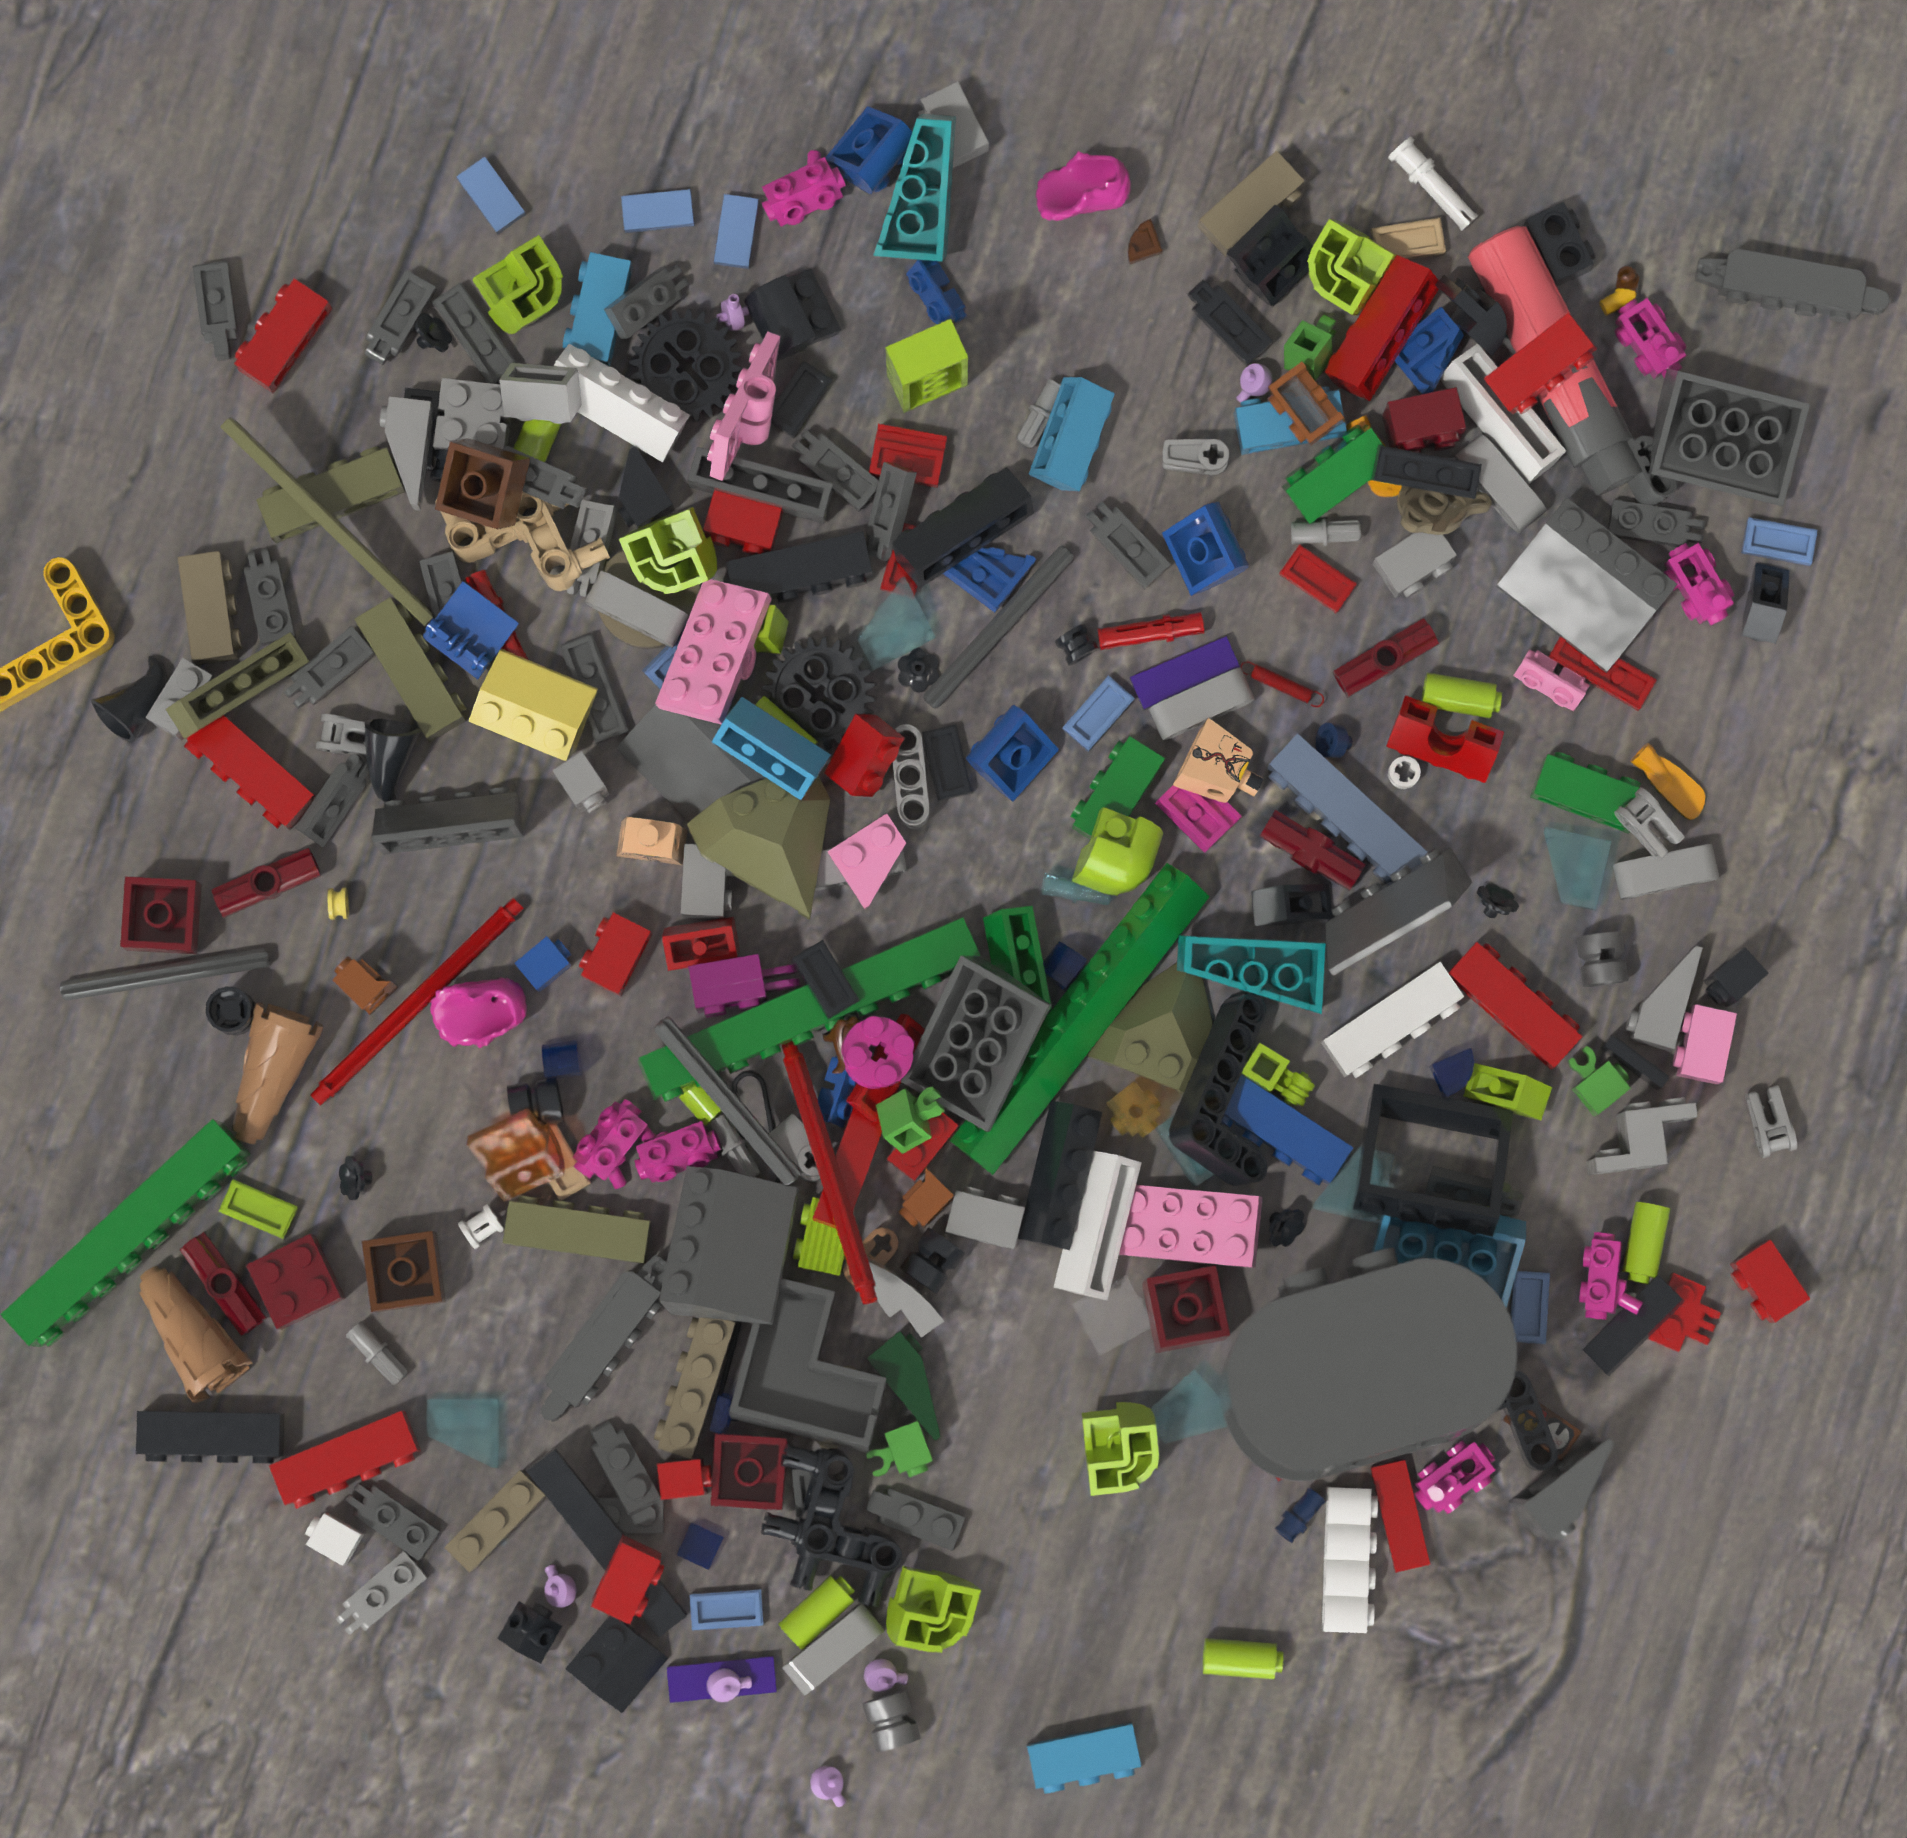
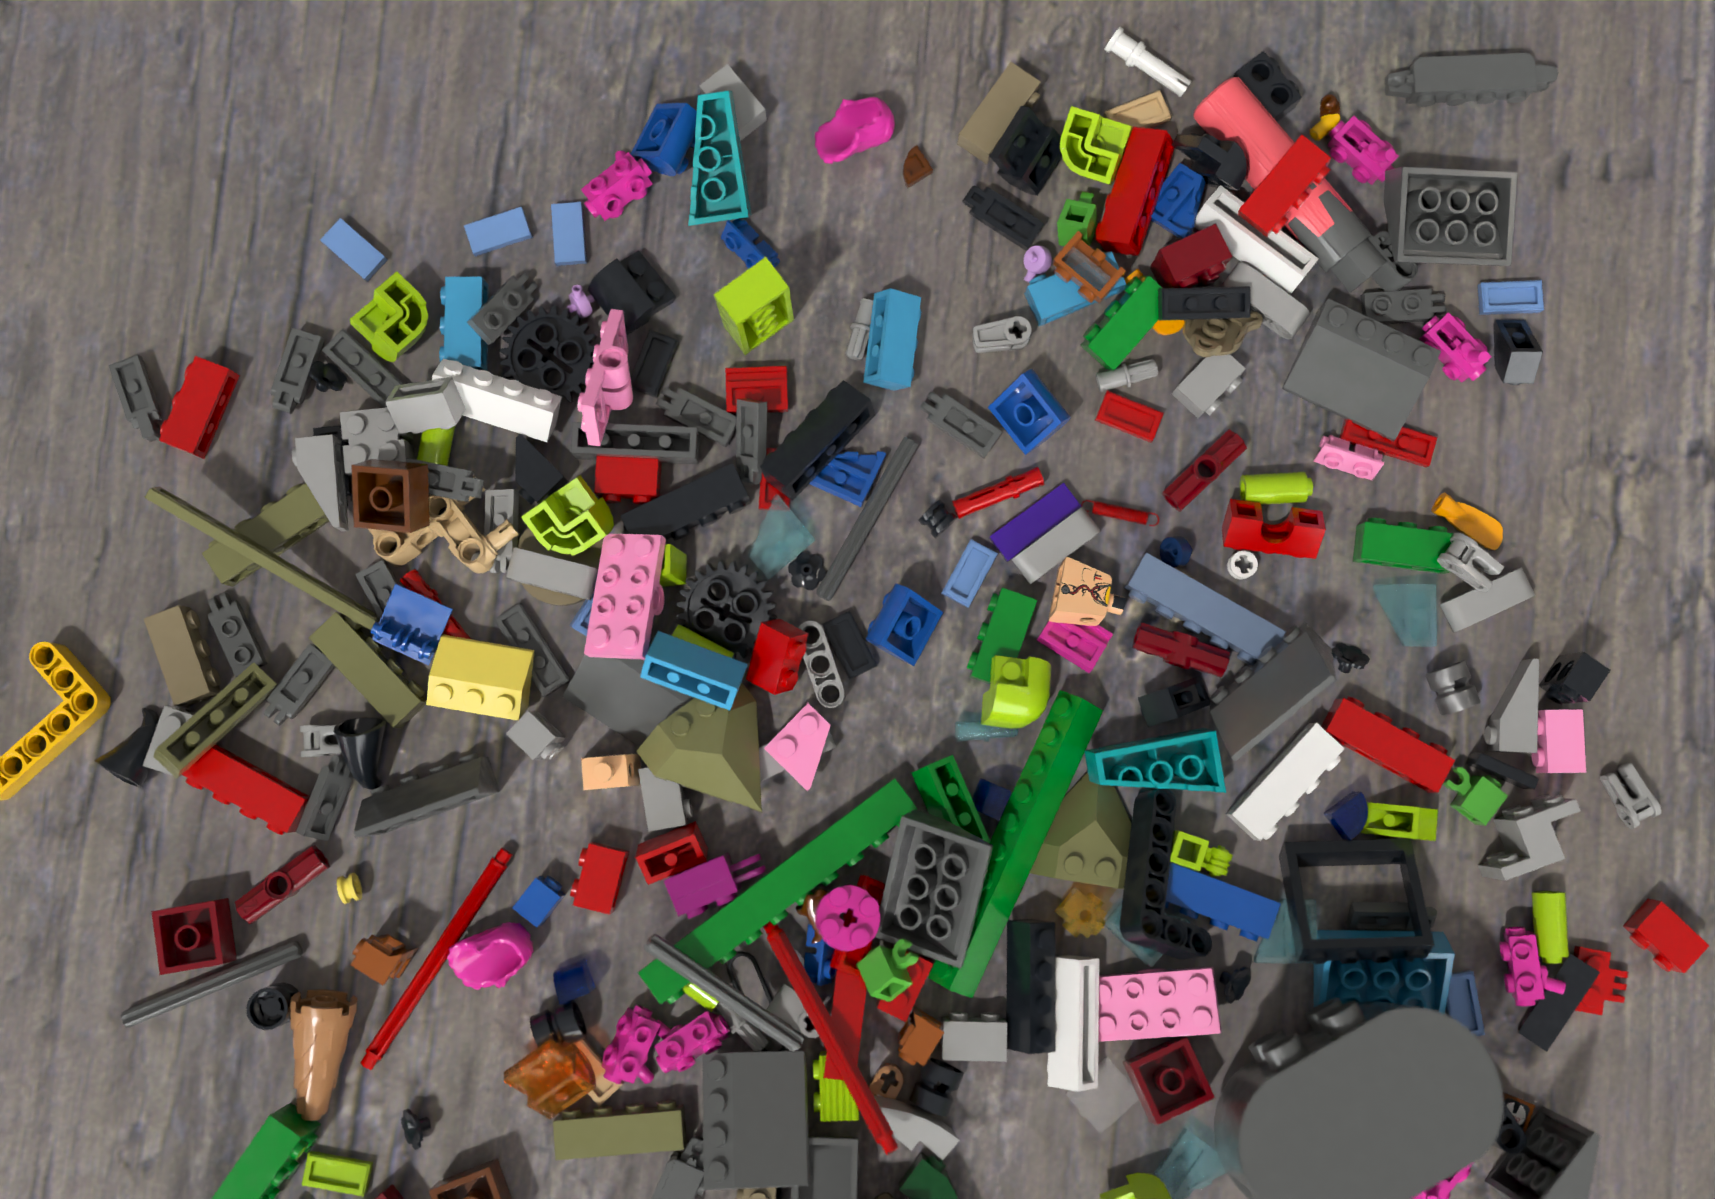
camera: 10 degrees left, 0 degrees up
(486, 1216) = (534, 1146): white bush -> none
(825, 979) = (787, 863): black tile -> none

